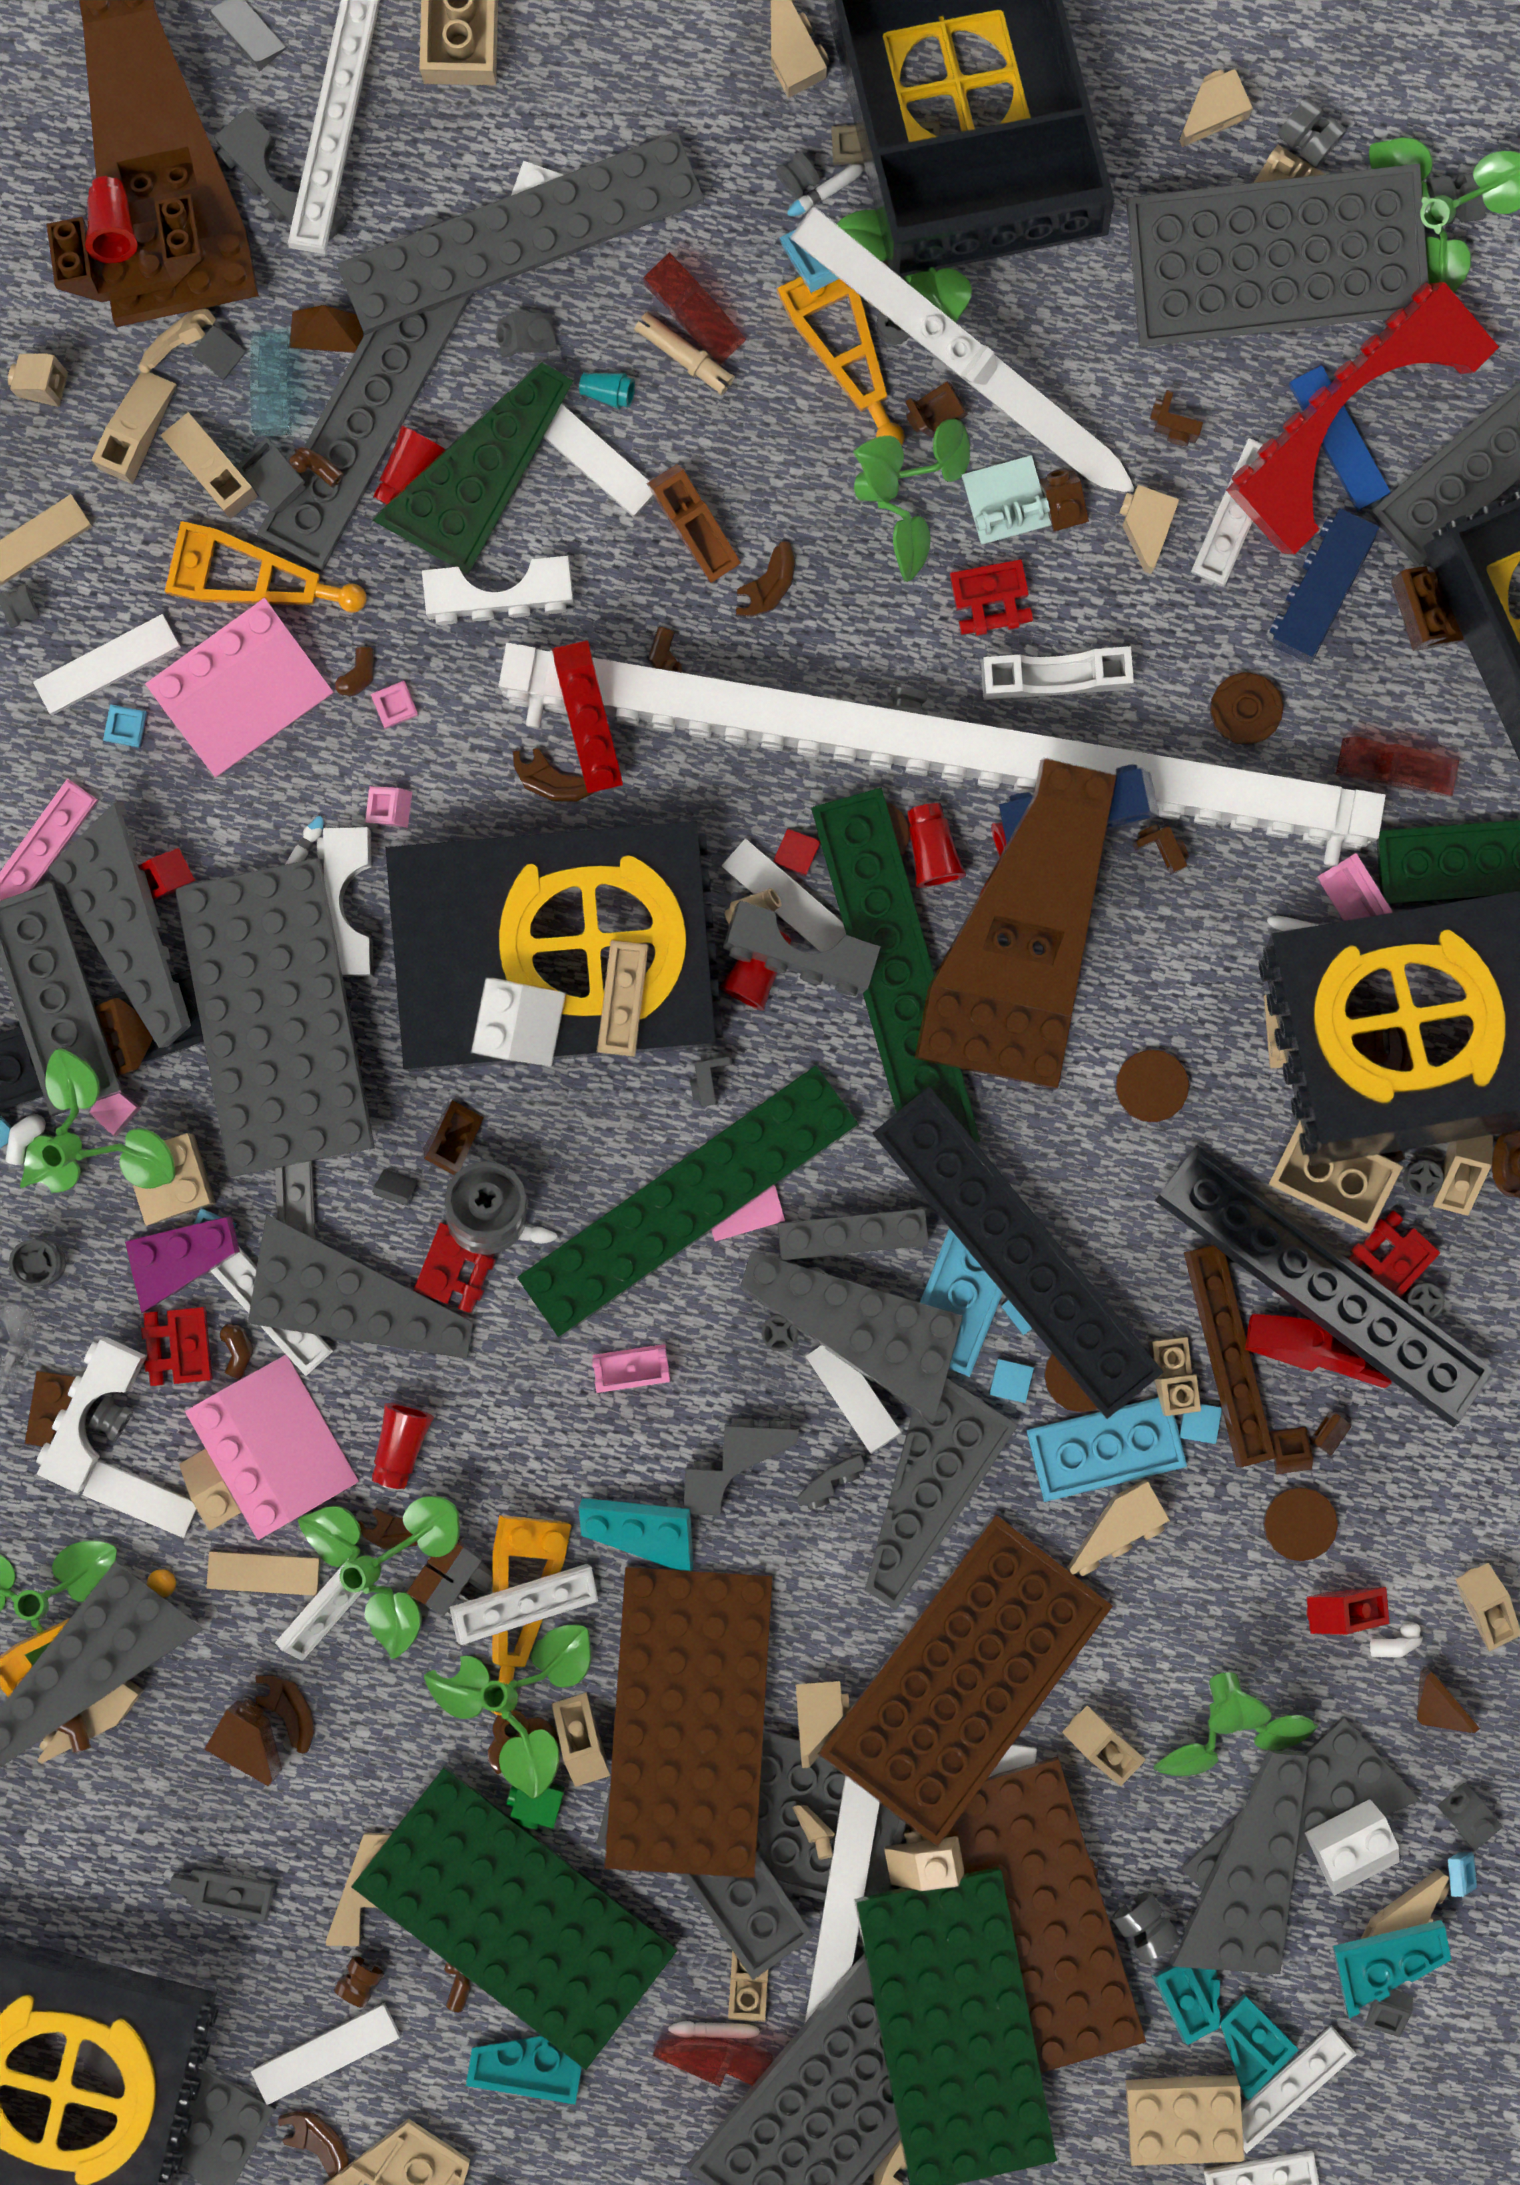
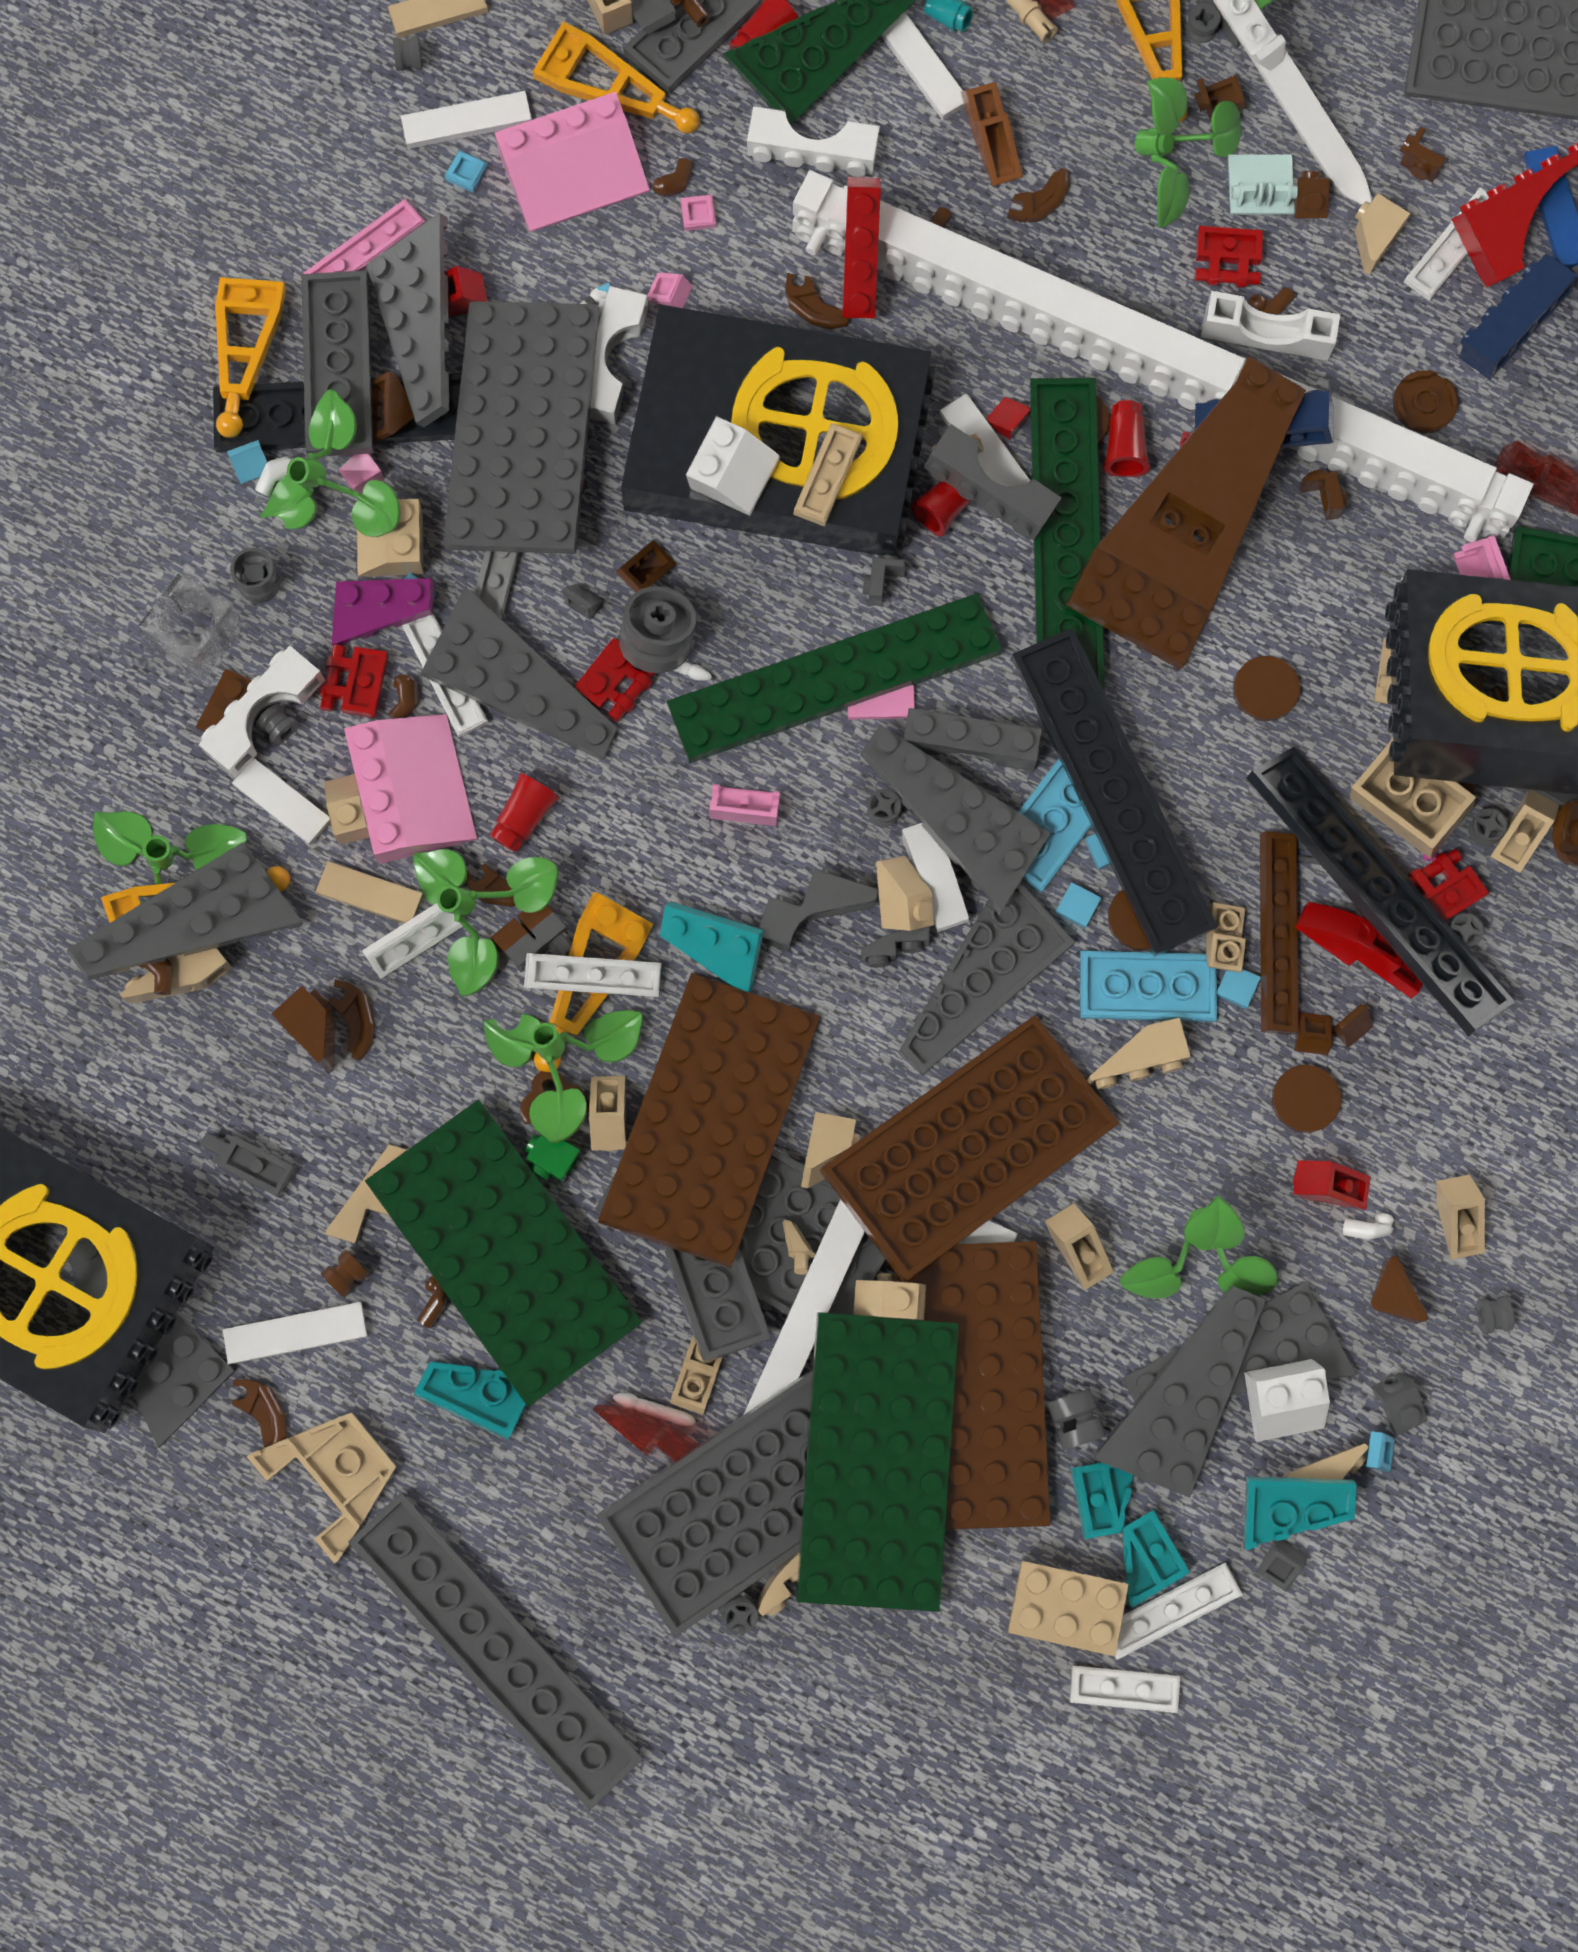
camera: 10 degrees right, 10 degrees down
(826, 1430) = (903, 896): none -> tan slope
(1052, 644) = (1272, 306): none -> reddish brown arm

